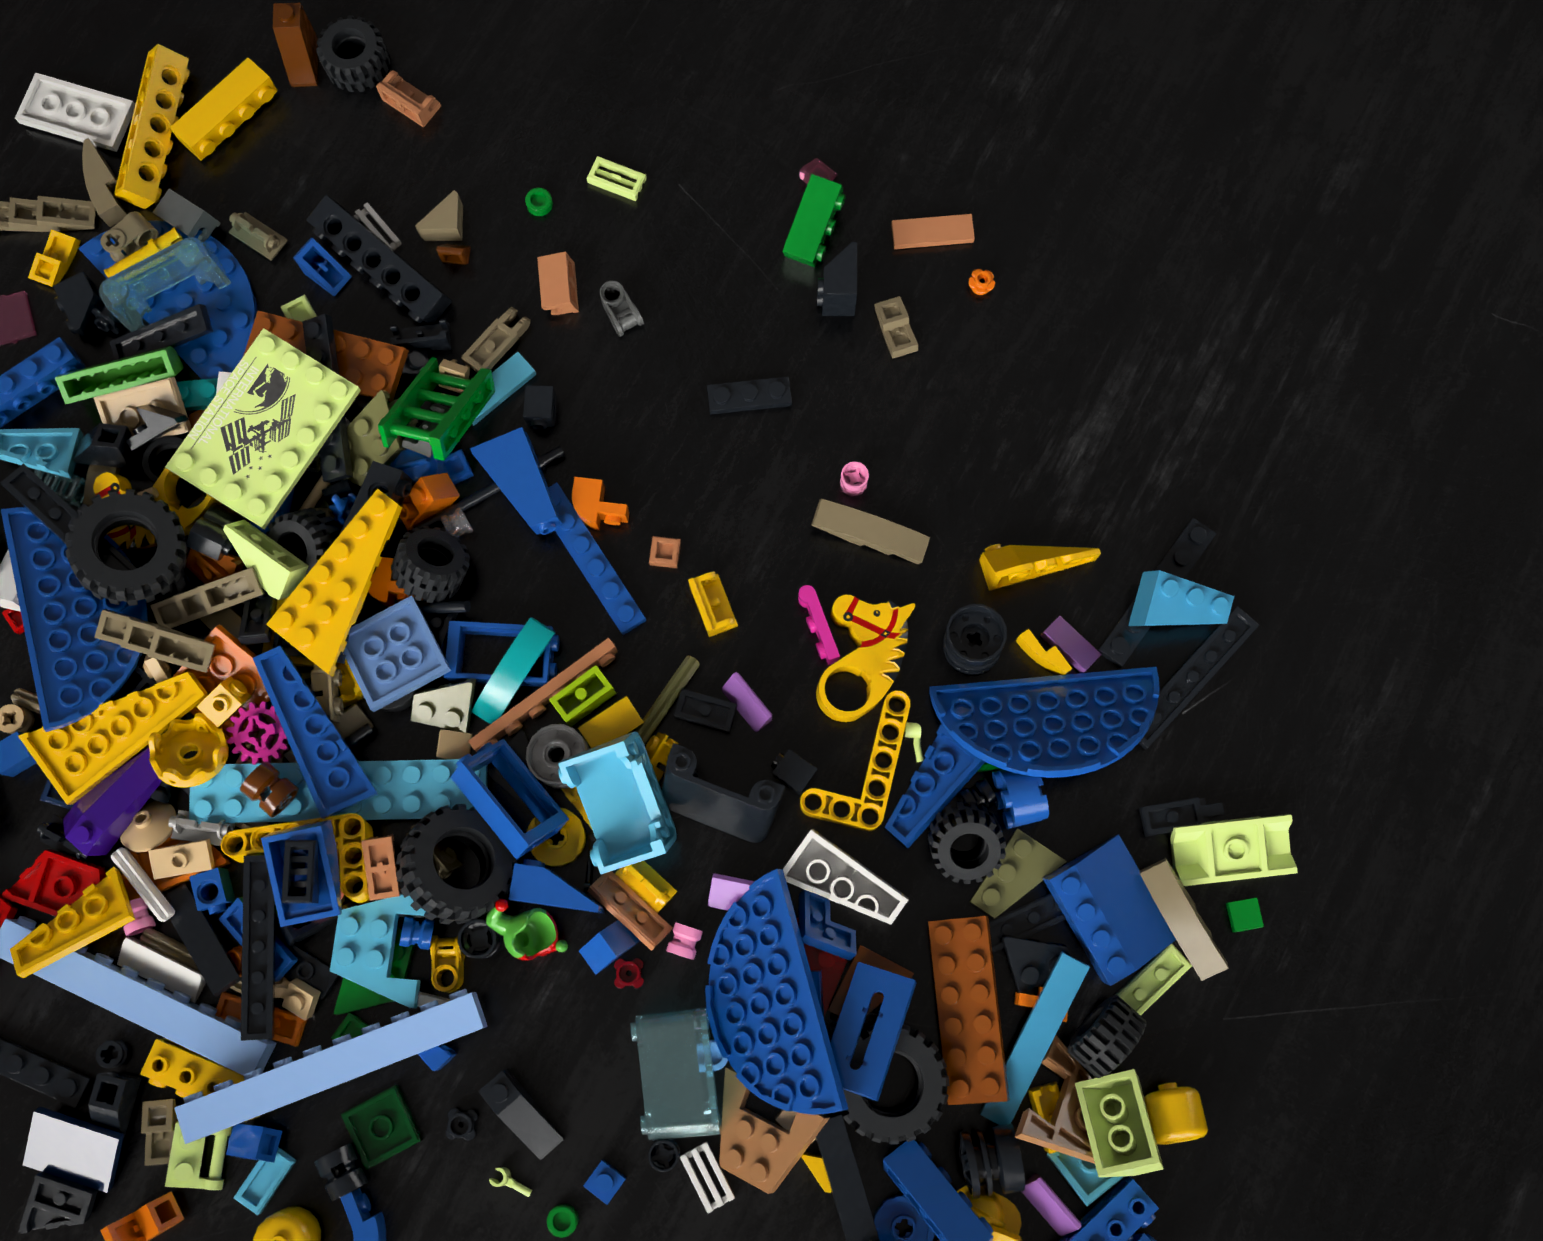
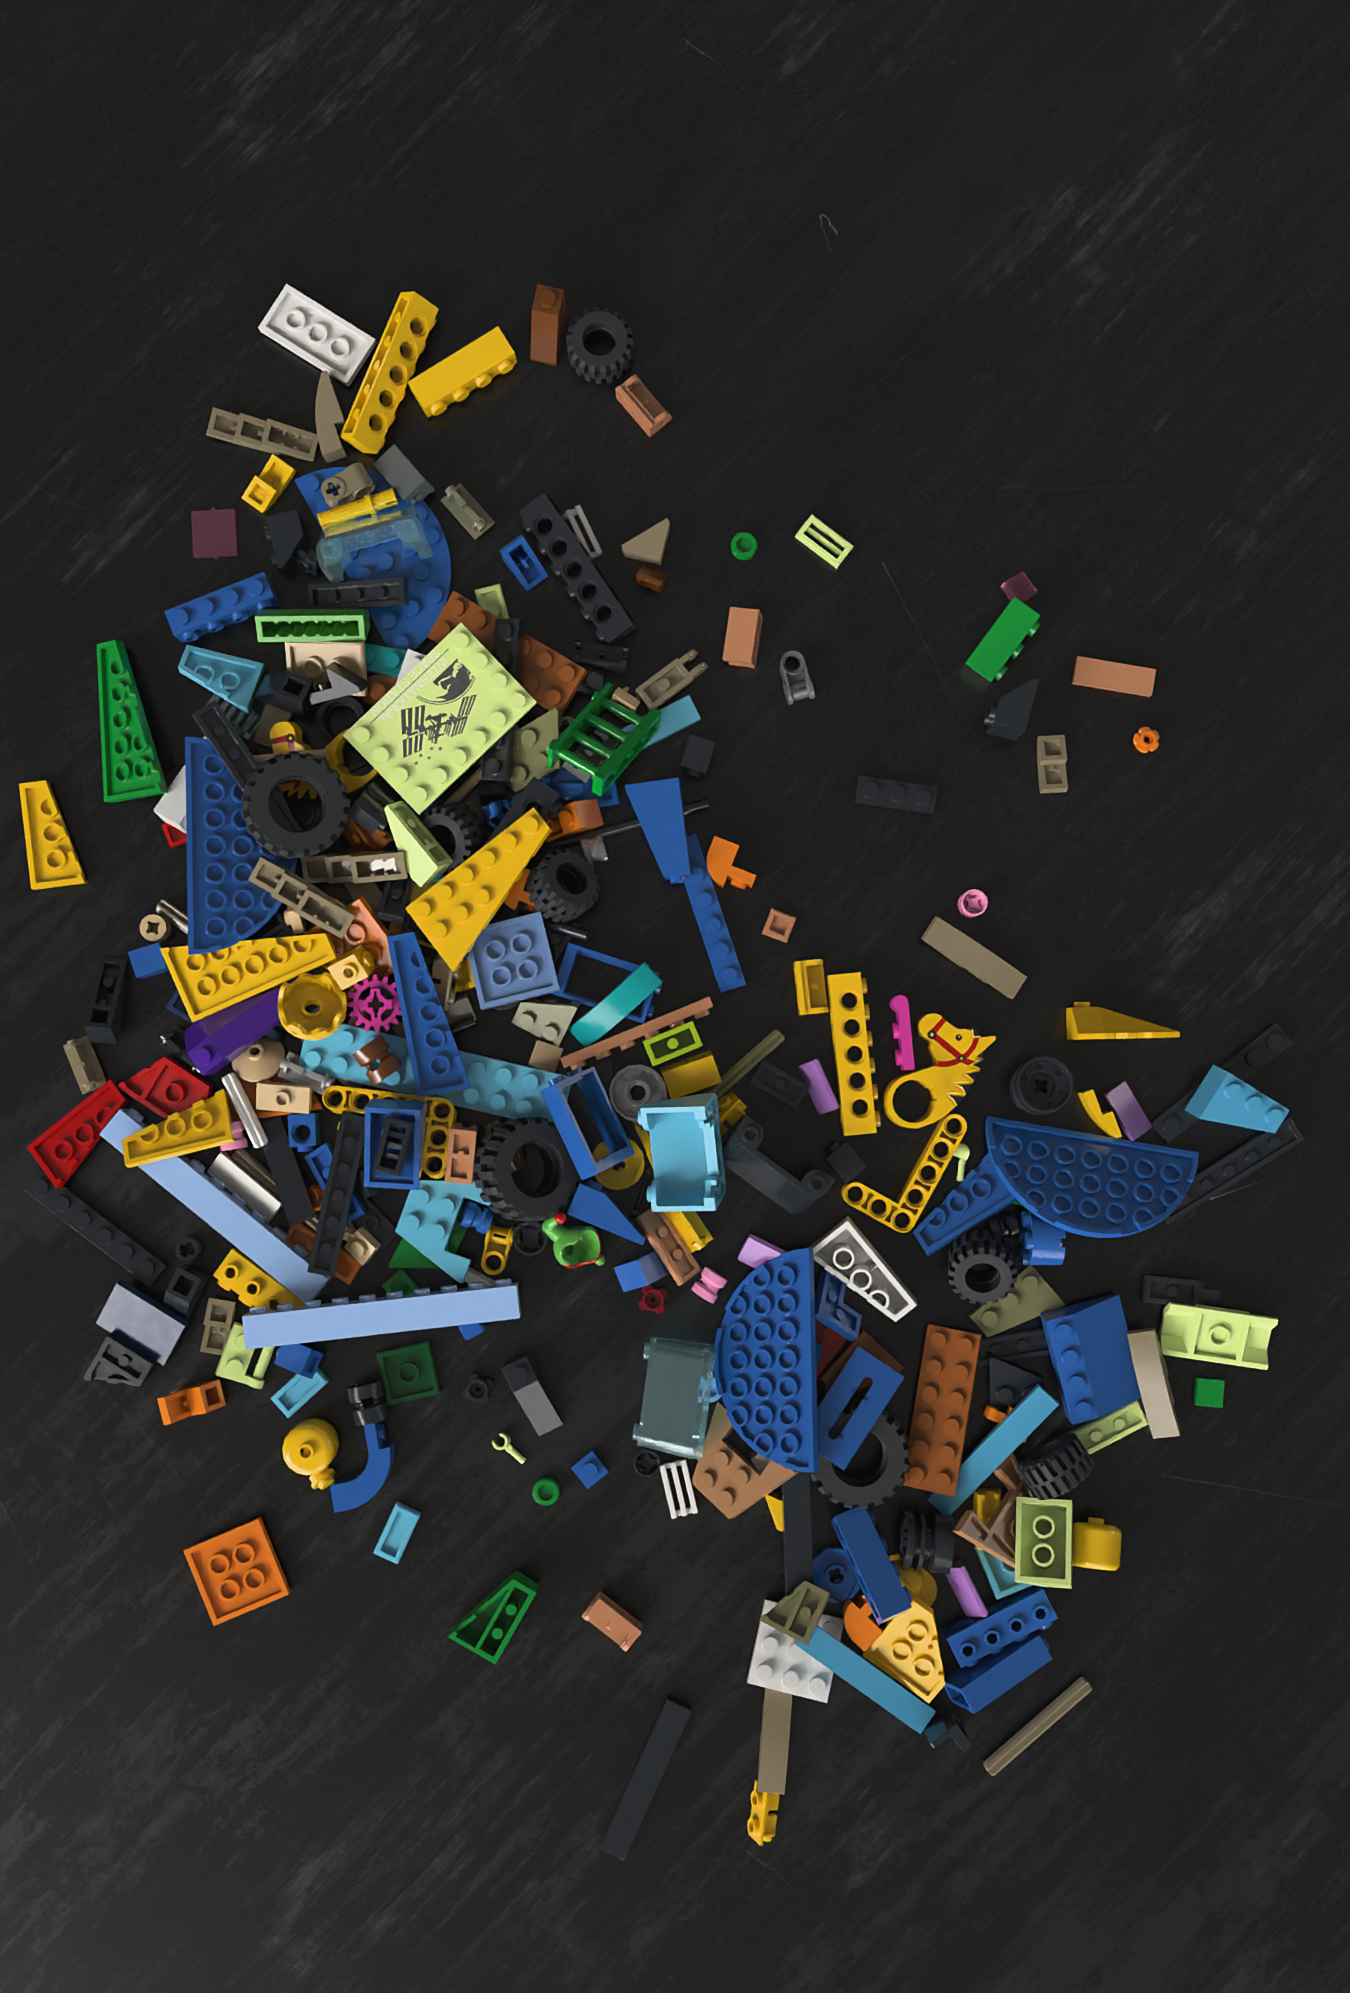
camera: 15 degrees right, 10 degrees up
(741, 594) = (850, 1122): none -> yellow brick

